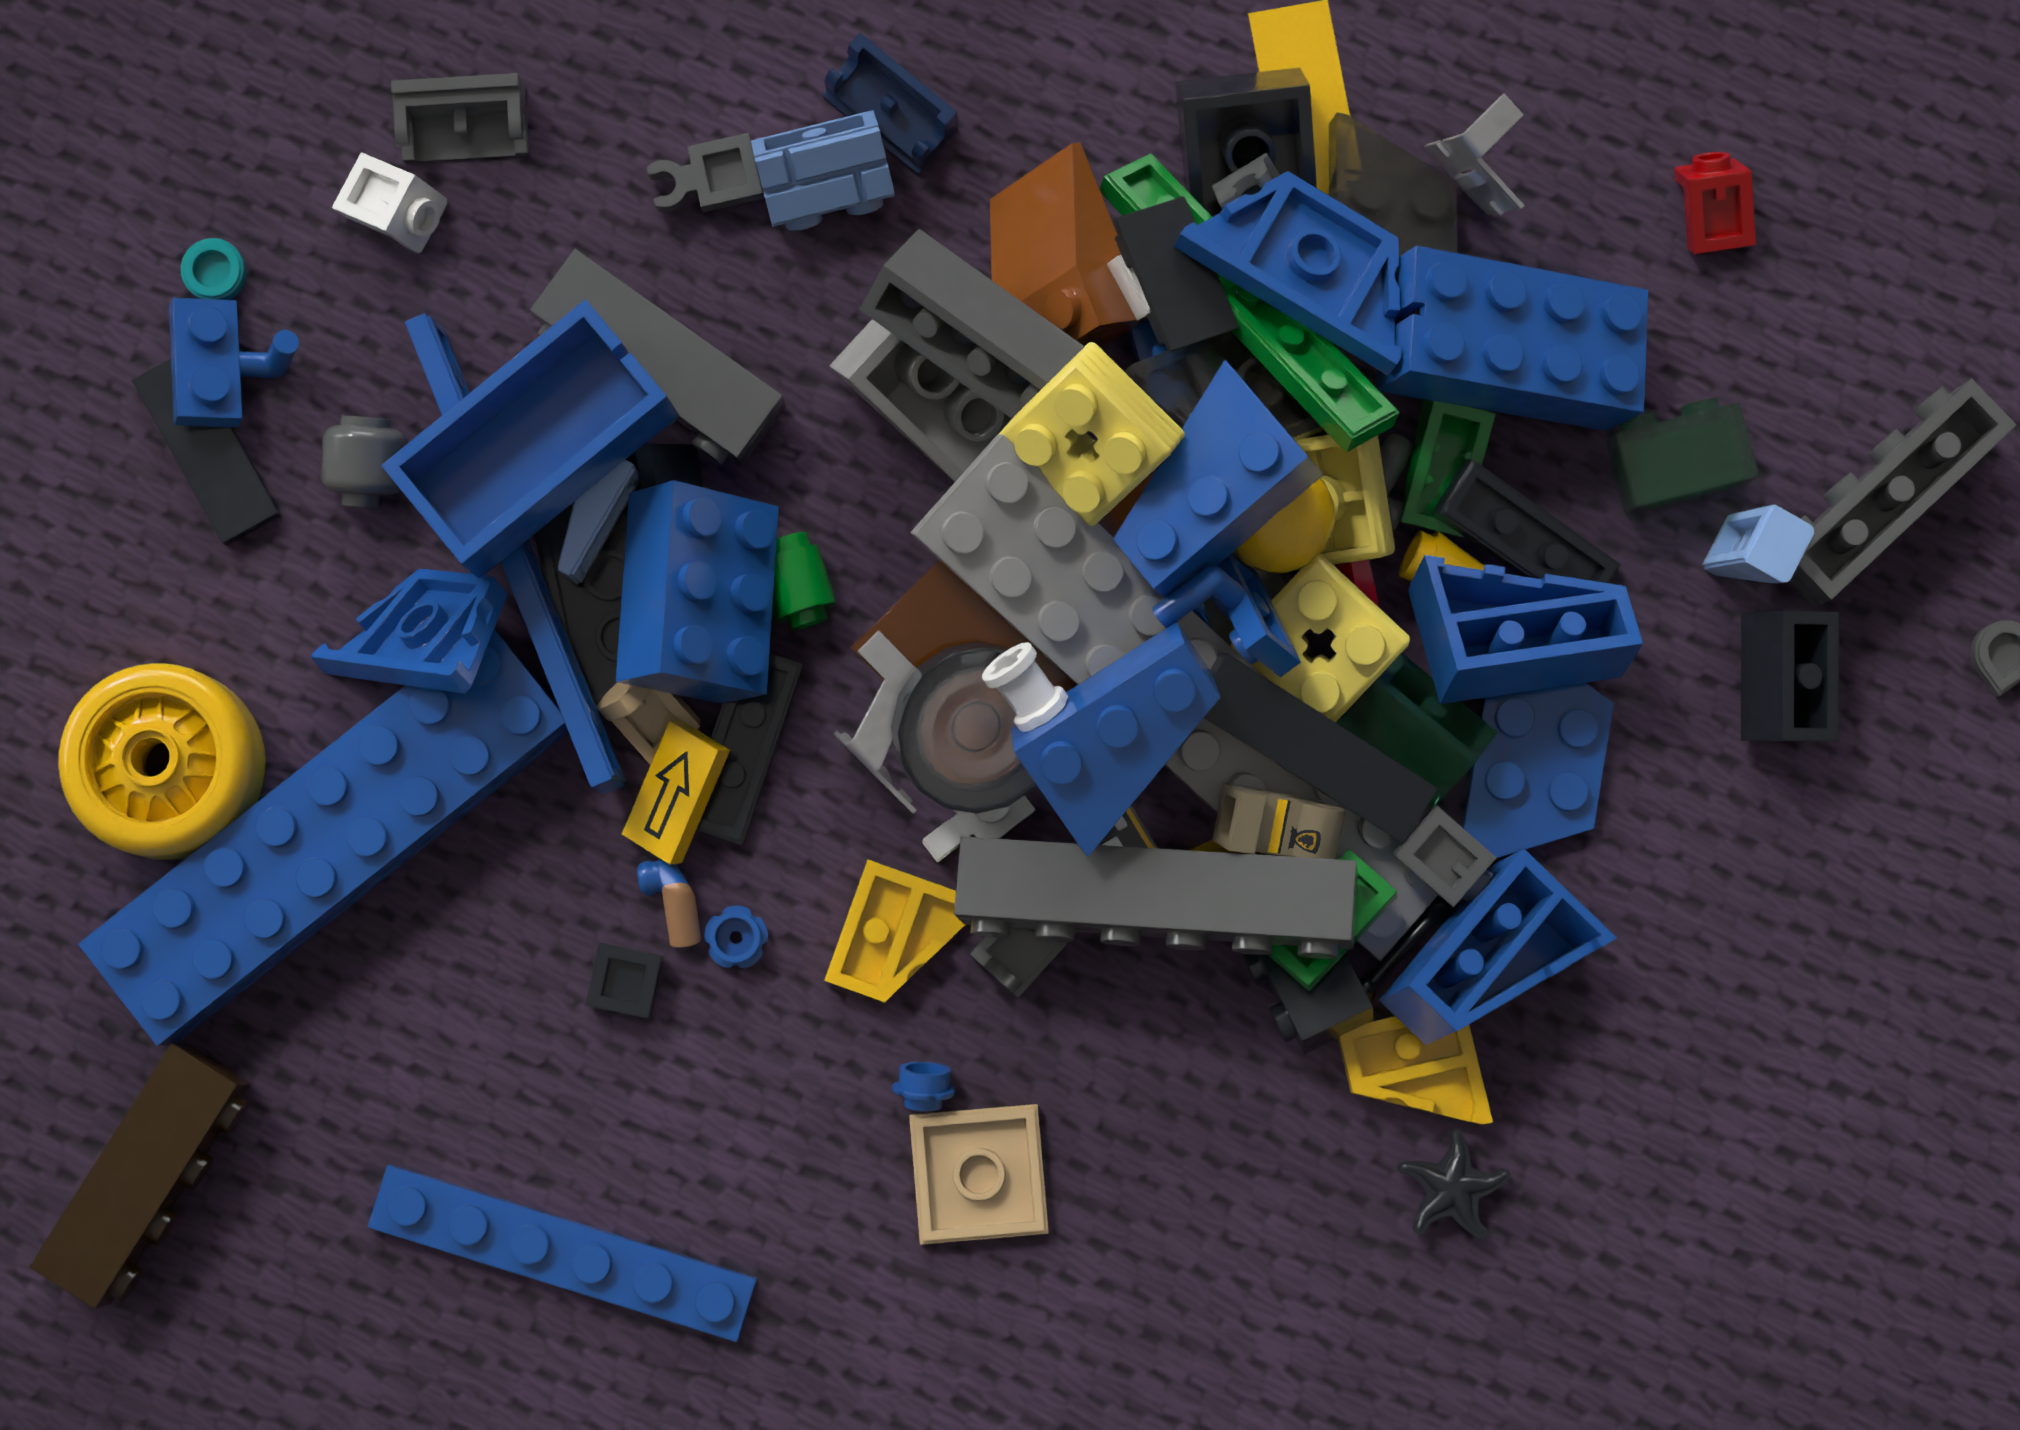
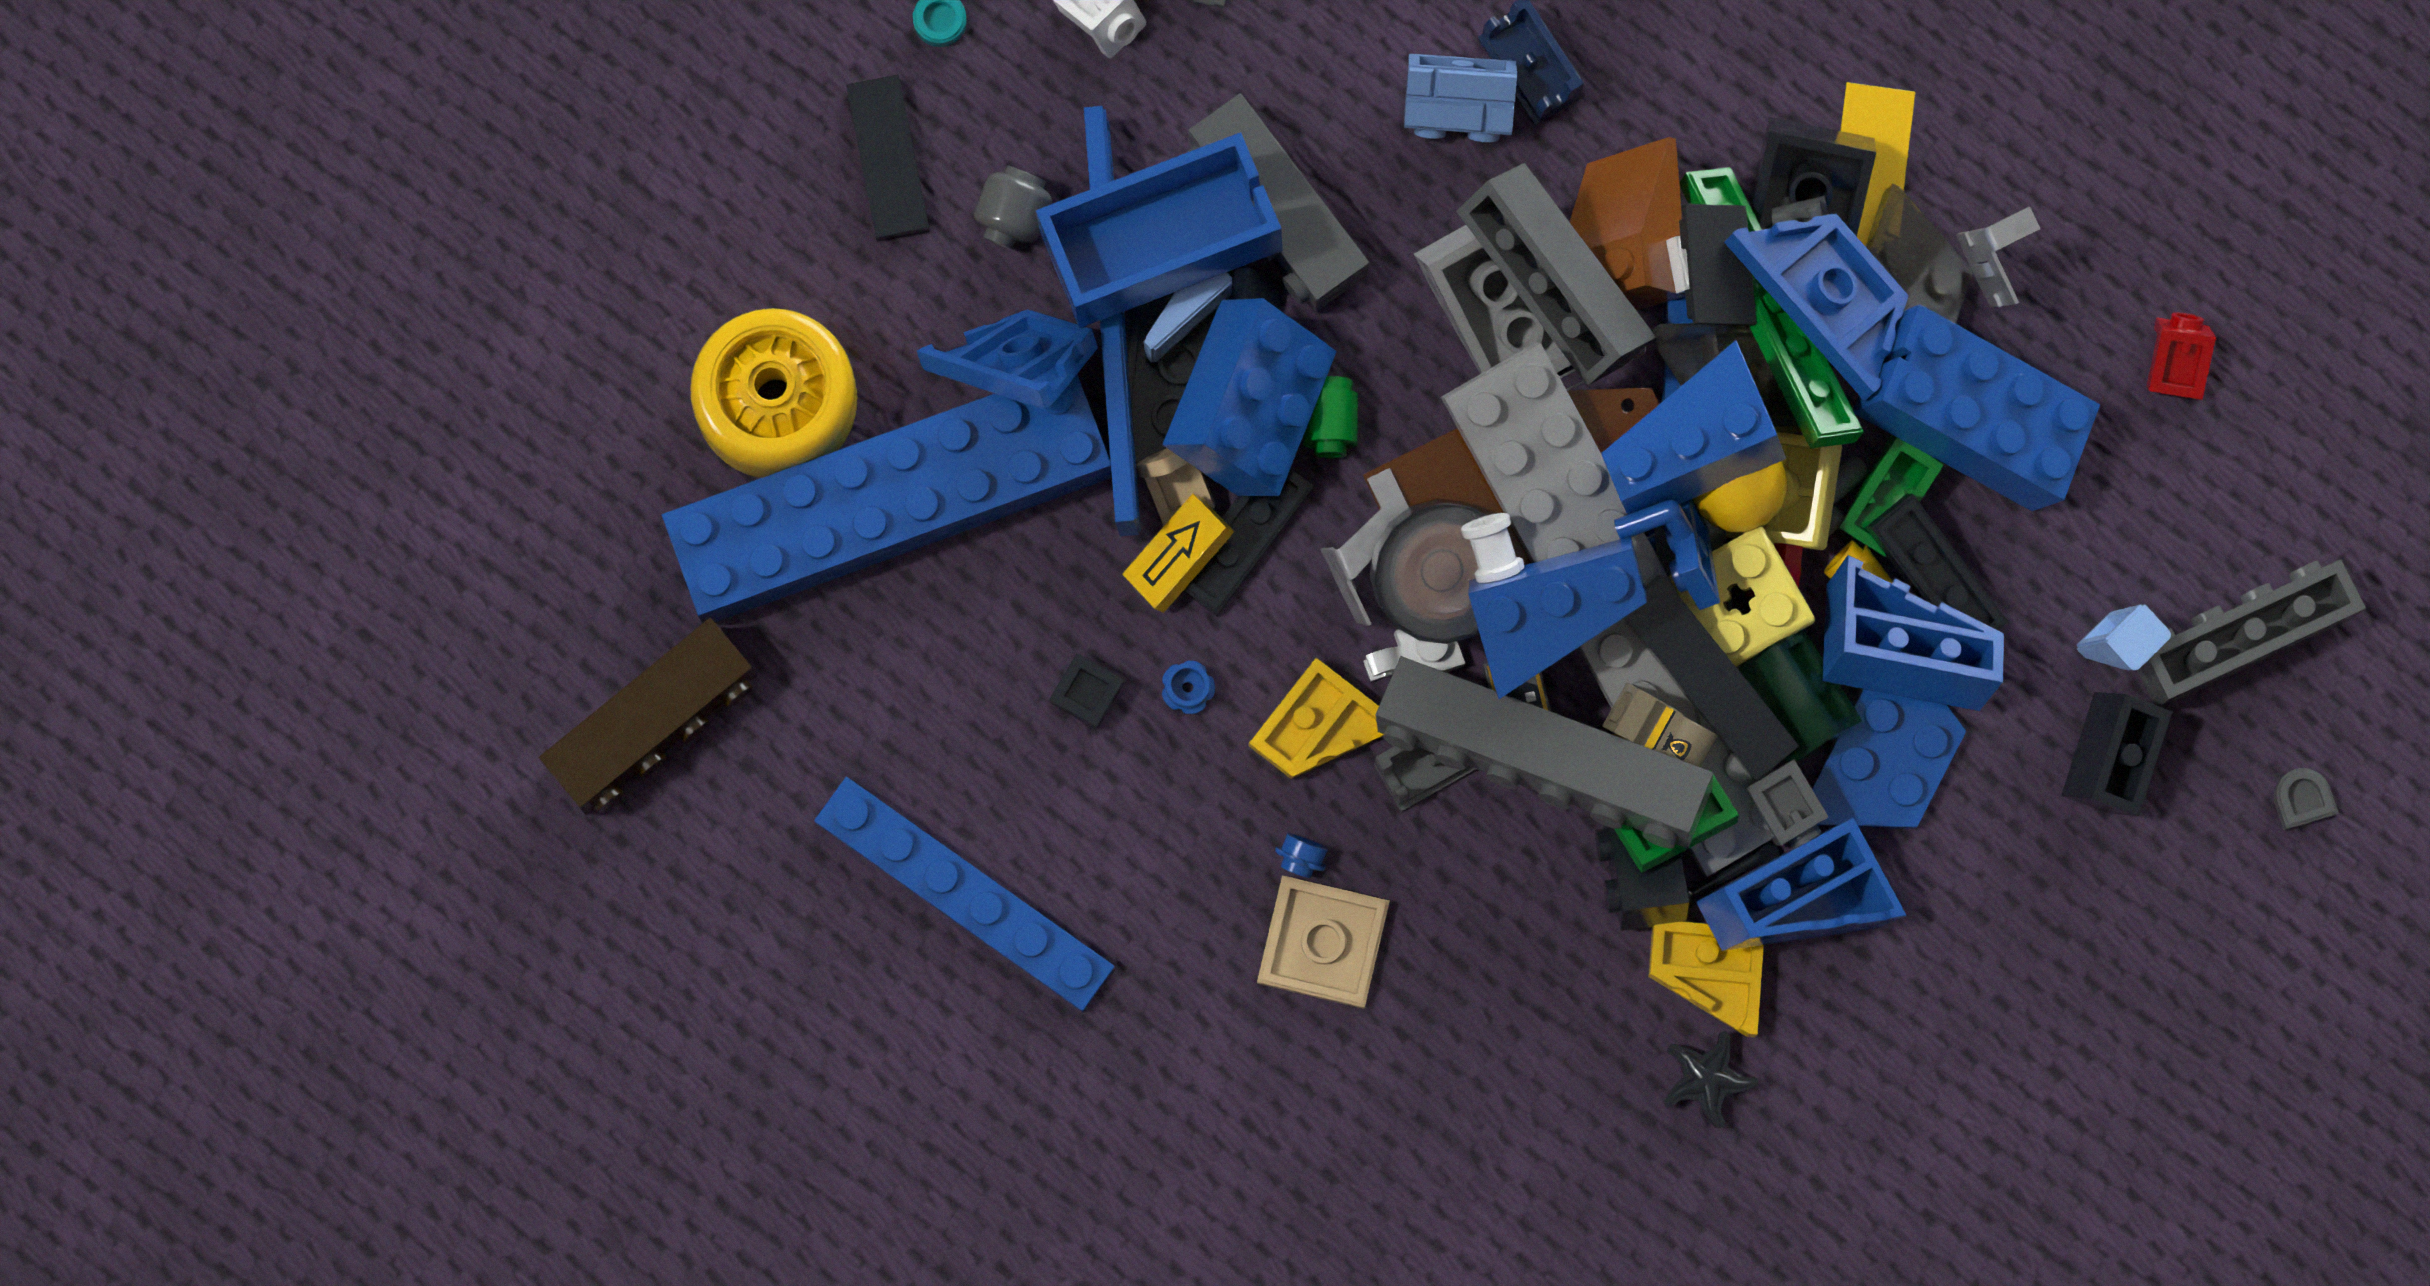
camera: 15 degrees right, 5 degrees down
(209, 362) = (914, 92): blue plate -> none
(677, 898) = (1151, 639): medium nougat arm -> none
(719, 173) = (1374, 72): dark grey plate -> none
(1101, 399) = (1642, 364): light yellow brick -> none
(1681, 456) = (2085, 549): clear green brick -> none

